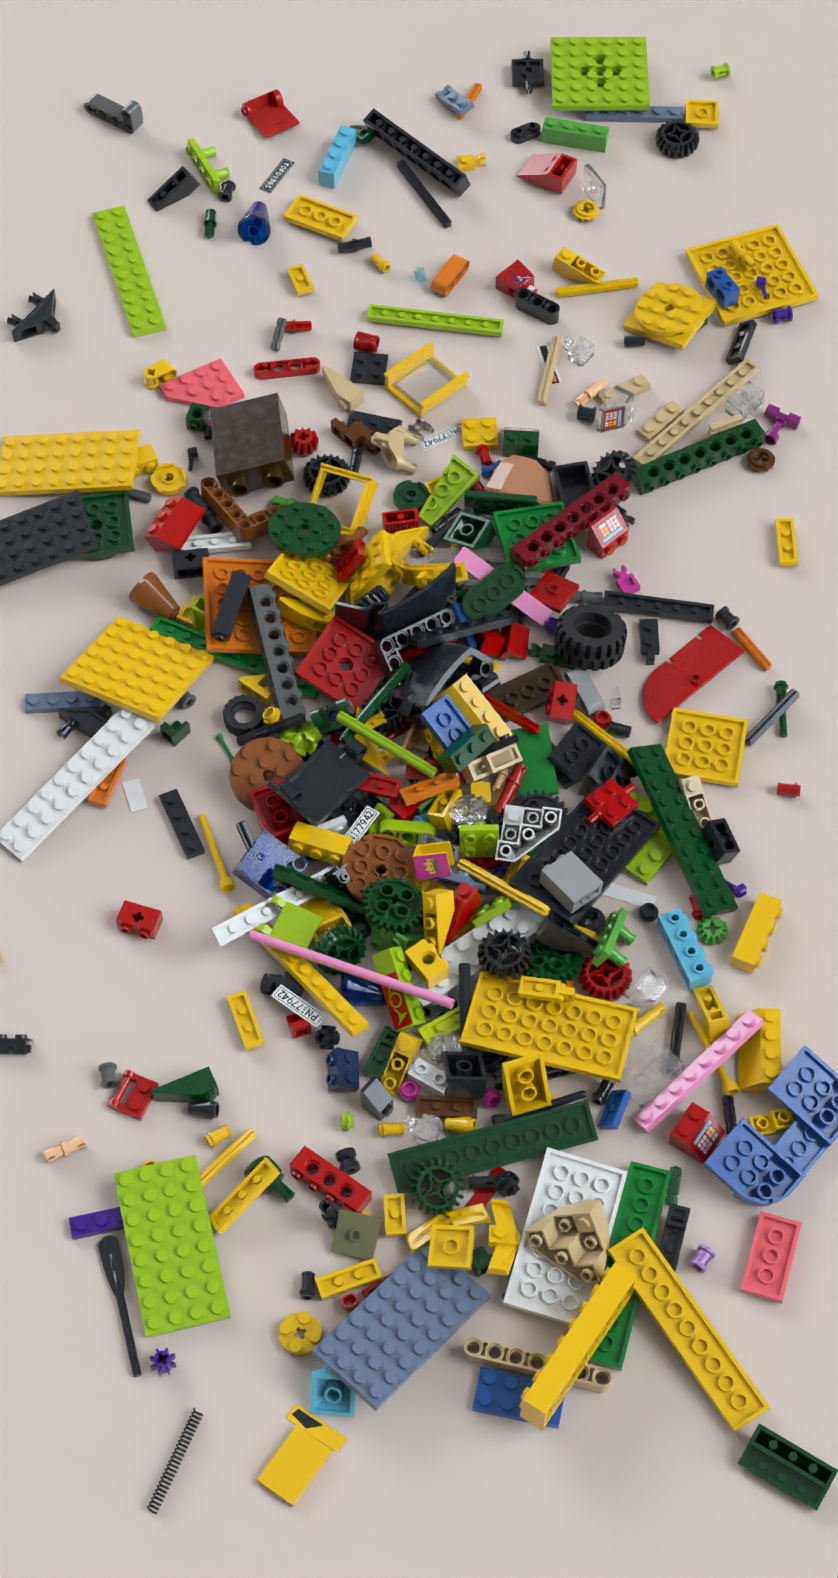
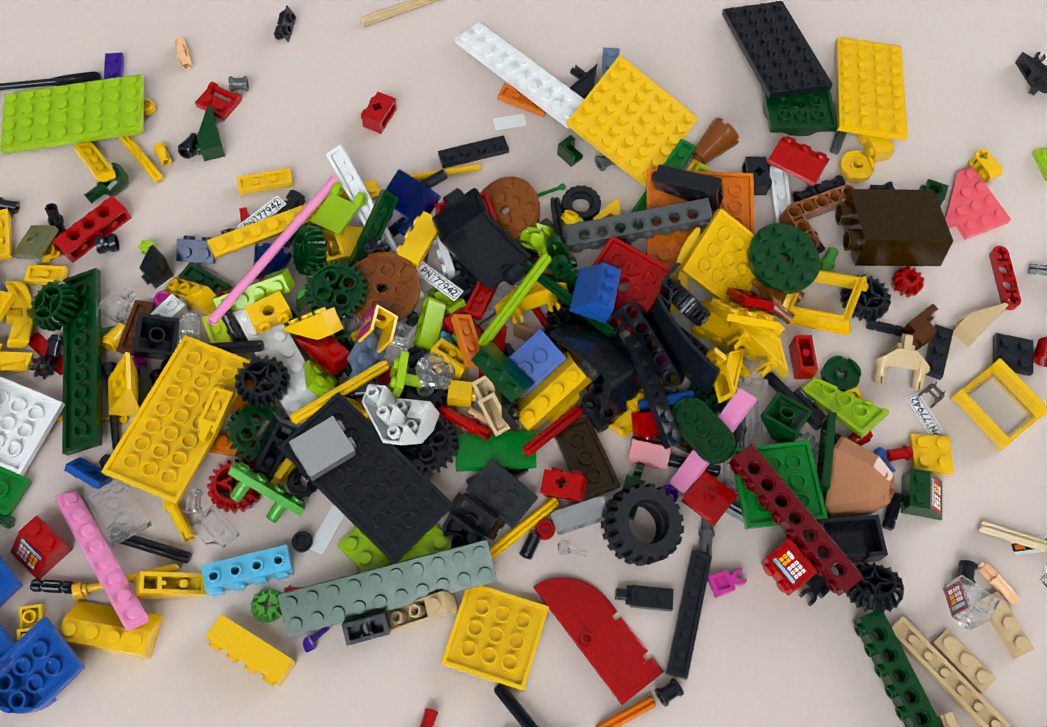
camera: 90 degrees right, 5 degrees up
(368, 675) = (595, 291): none -> blue slope
(390, 1128) = (130, 277): yellow pin -> none
(611, 803) = (422, 511): red plate -> none

